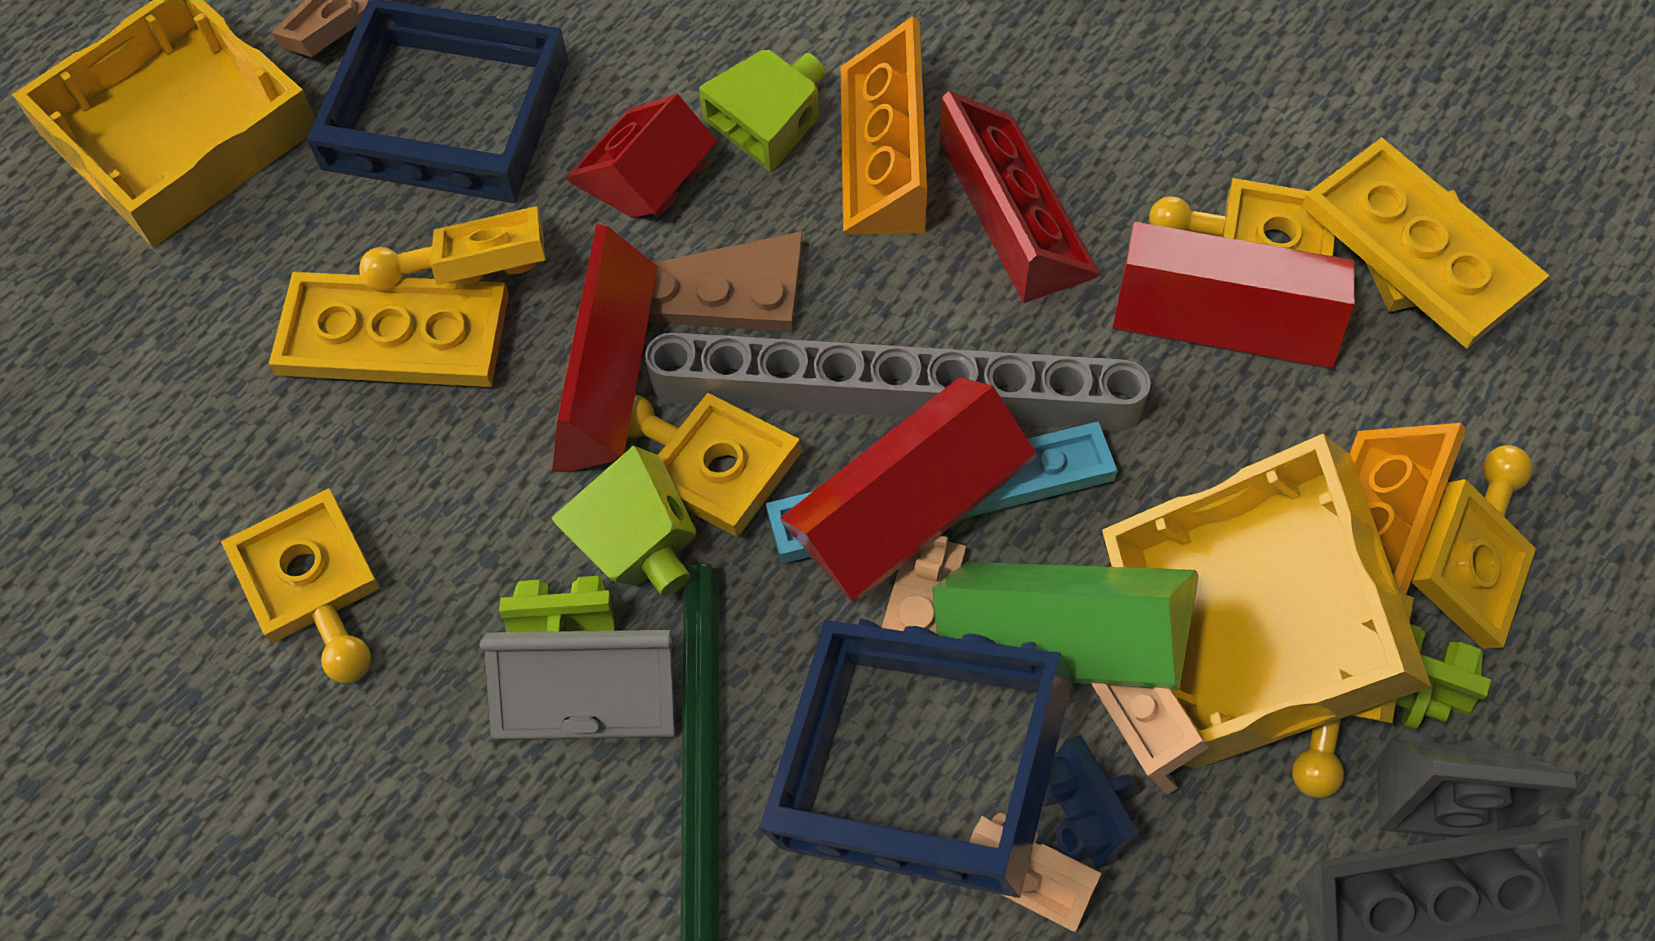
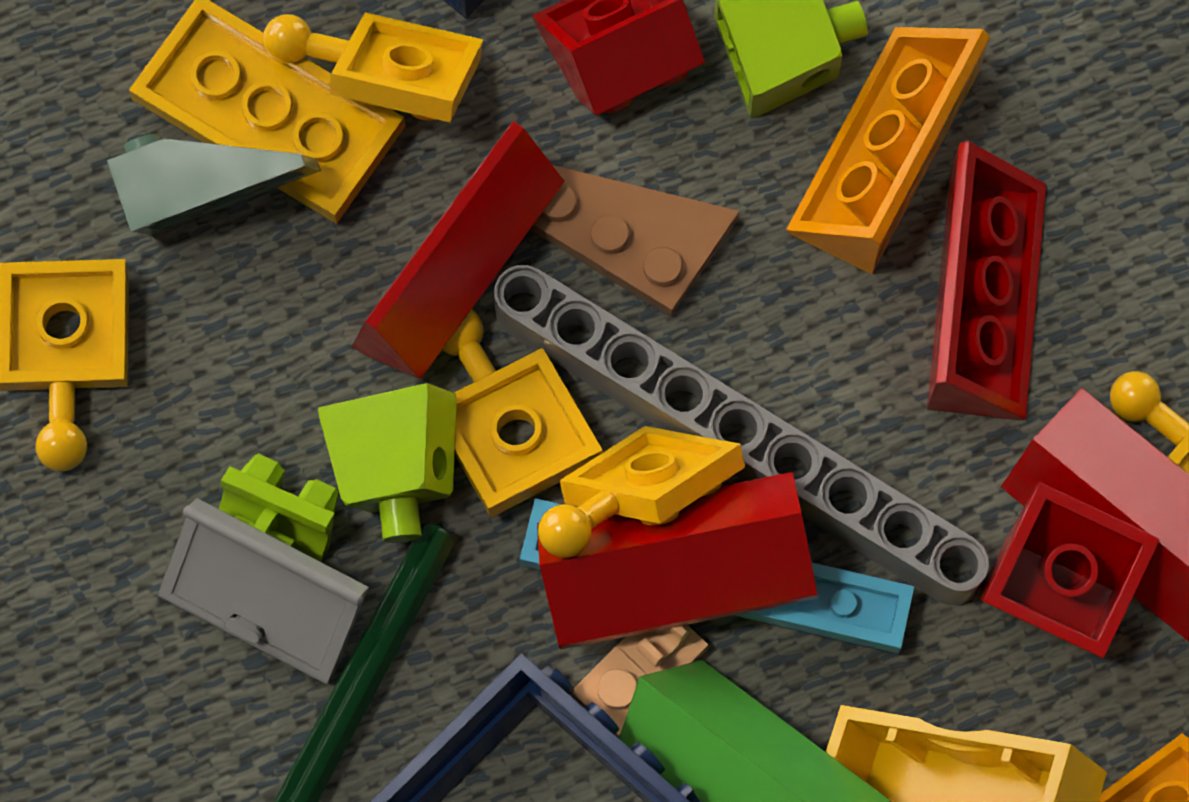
camera: 25 degrees right, 10 degrees up
(354, 400) = (182, 180): none -> sand green slope
(843, 437) = (639, 478): none -> yellow plate
(1209, 347) = (1069, 569): none -> red slope

